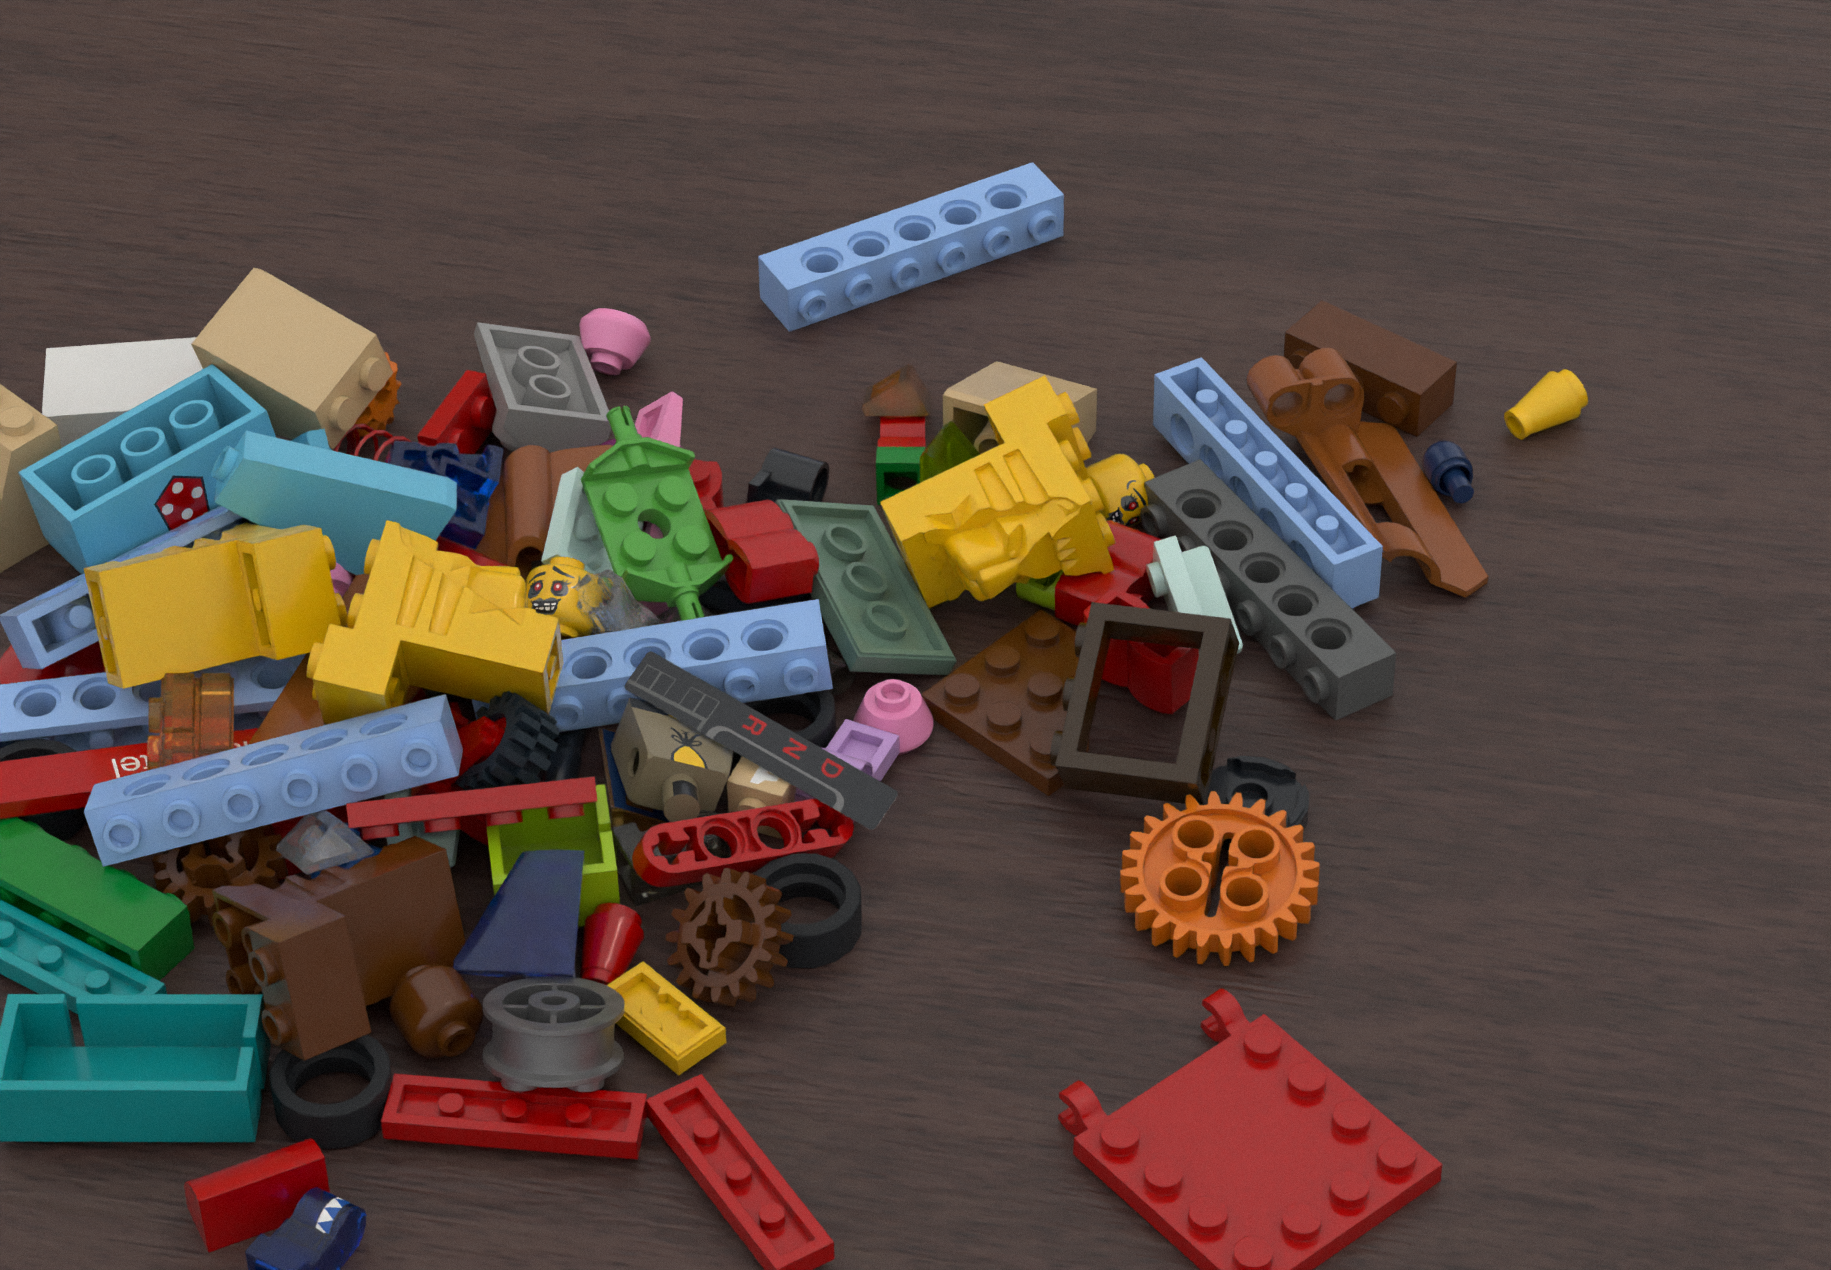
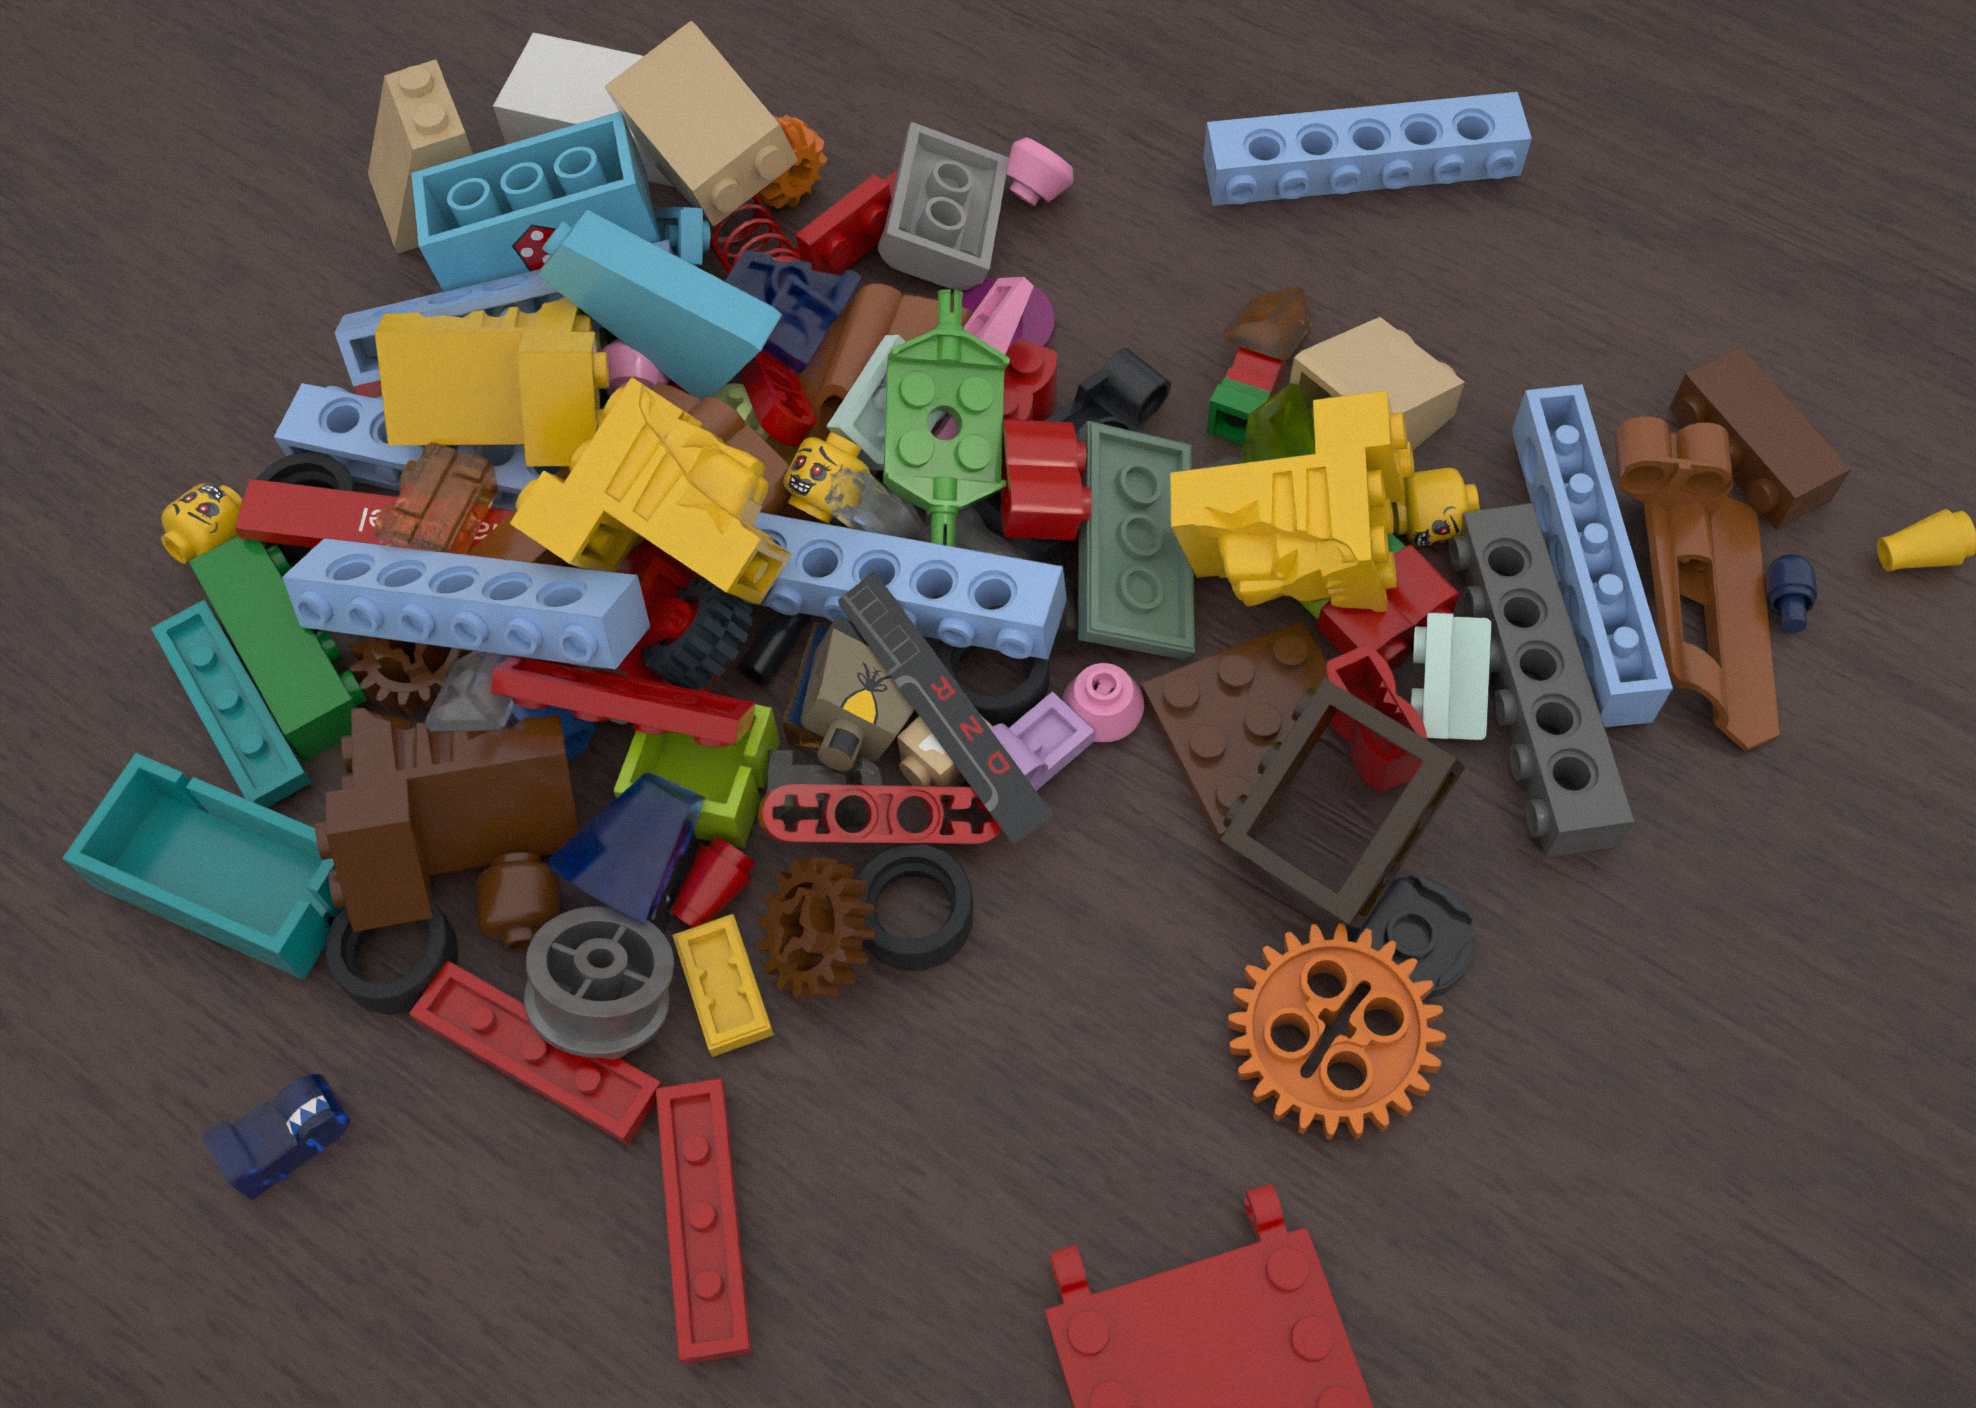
camera: 25 degrees right, 20 degrees up
(254, 1193) = (266, 1048): red brick -> none

